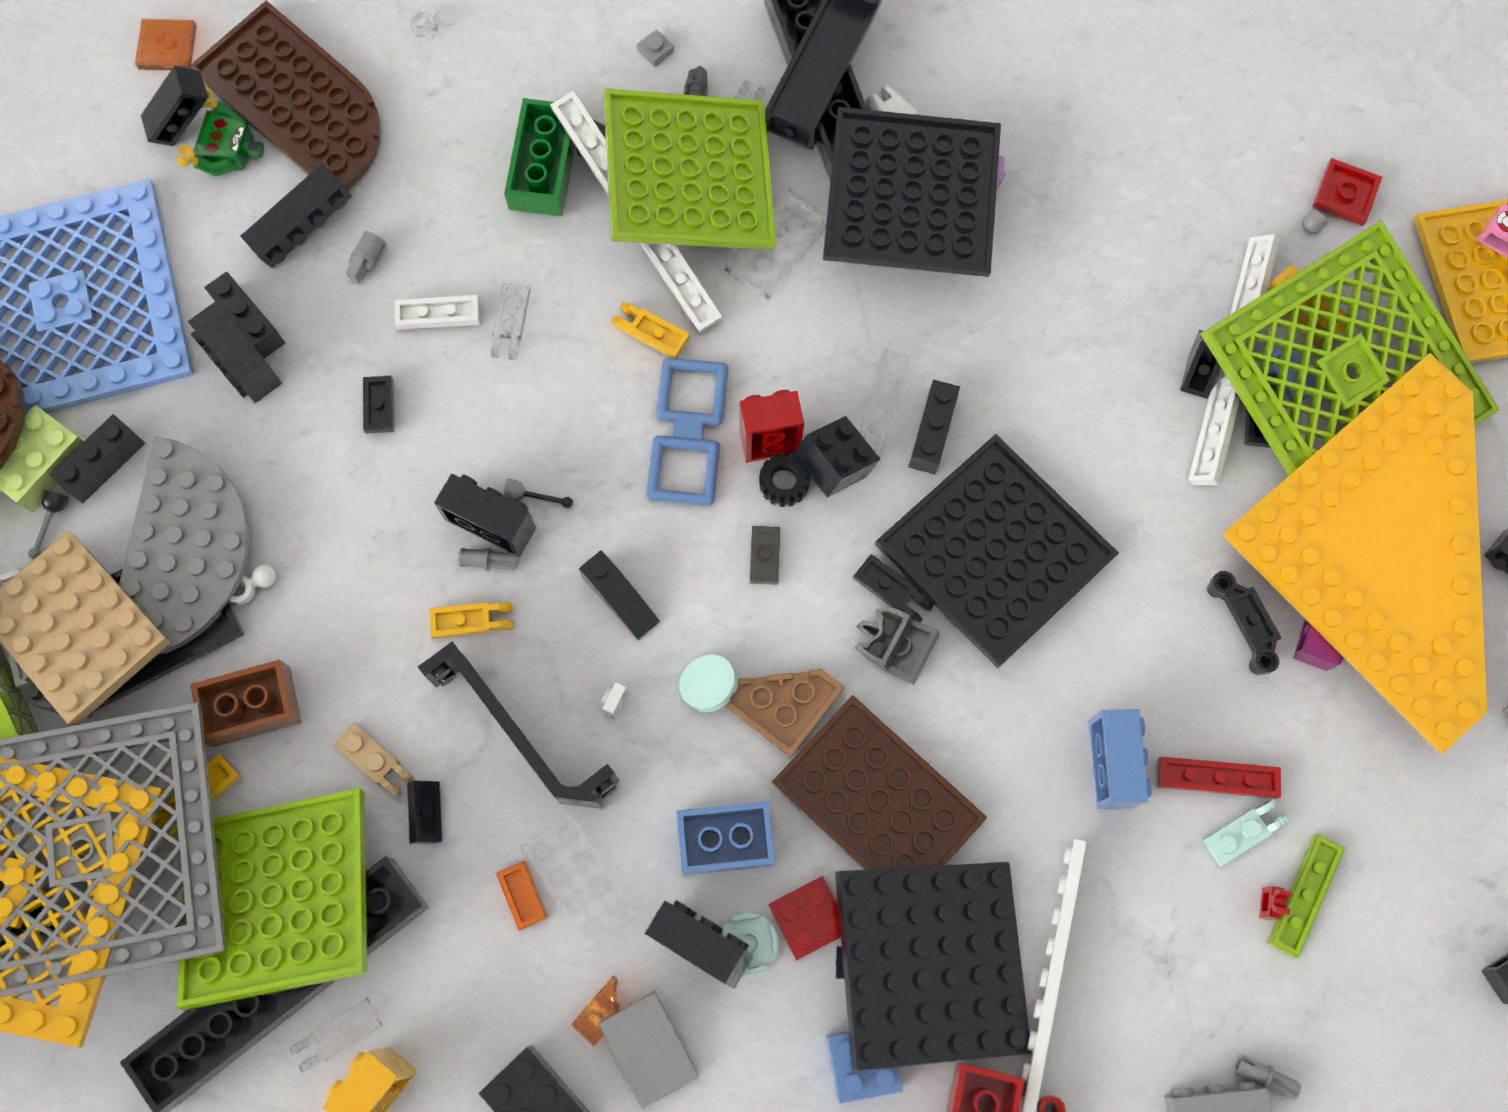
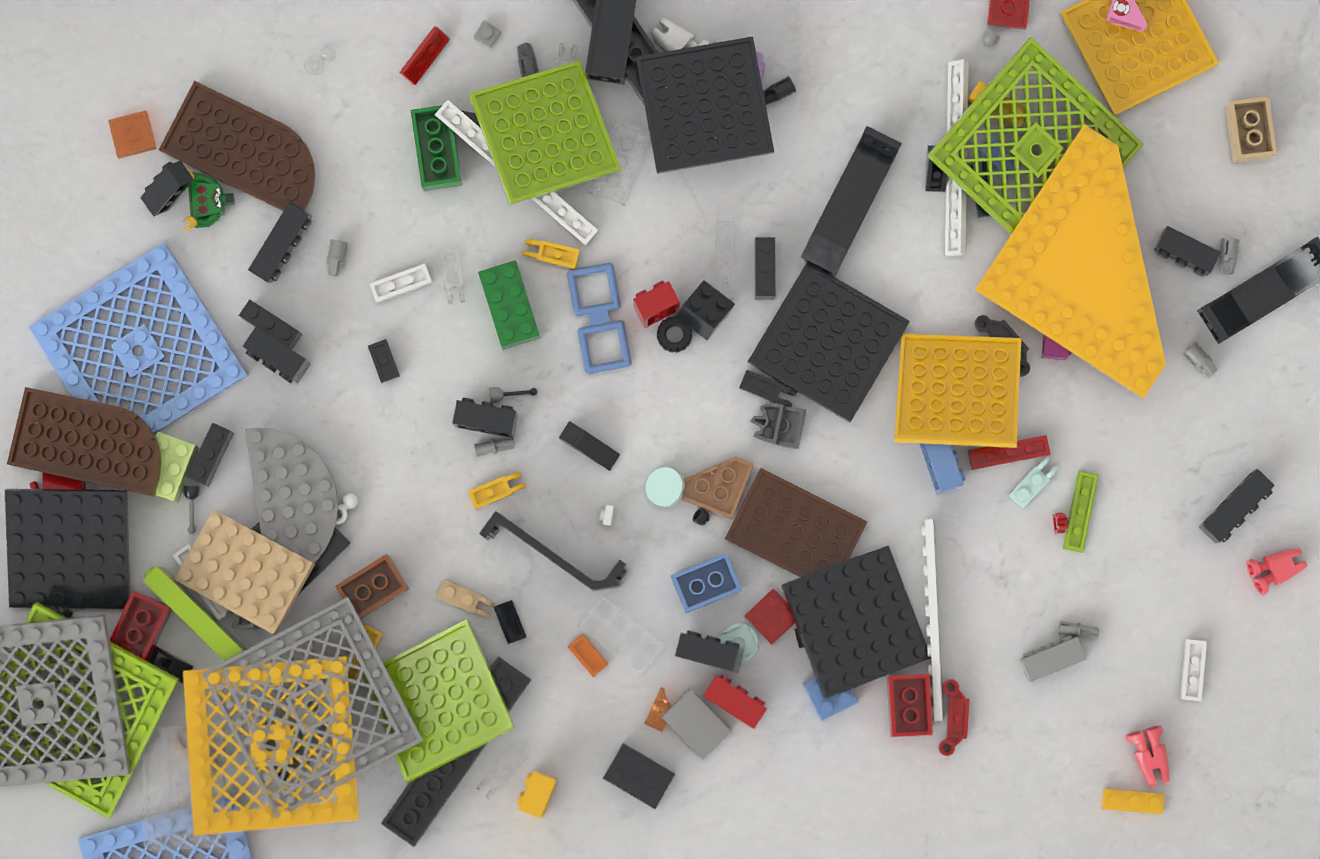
camera: 15 degrees left, 10 degrees up
(566, 49) = (424, 55): none -> red plate
(571, 378) = (509, 305): none -> green brick
(716, 1032) = (735, 701): none -> red brick
(747, 741) = (701, 517): none -> black hinge
(765, 555) = (676, 389): clear smoke plate -> none
(1016, 211) = (779, 90): none -> black hinge
(1076, 371) = (851, 200): none -> black panel
(1171, 666) = (958, 390): none -> yellow plate

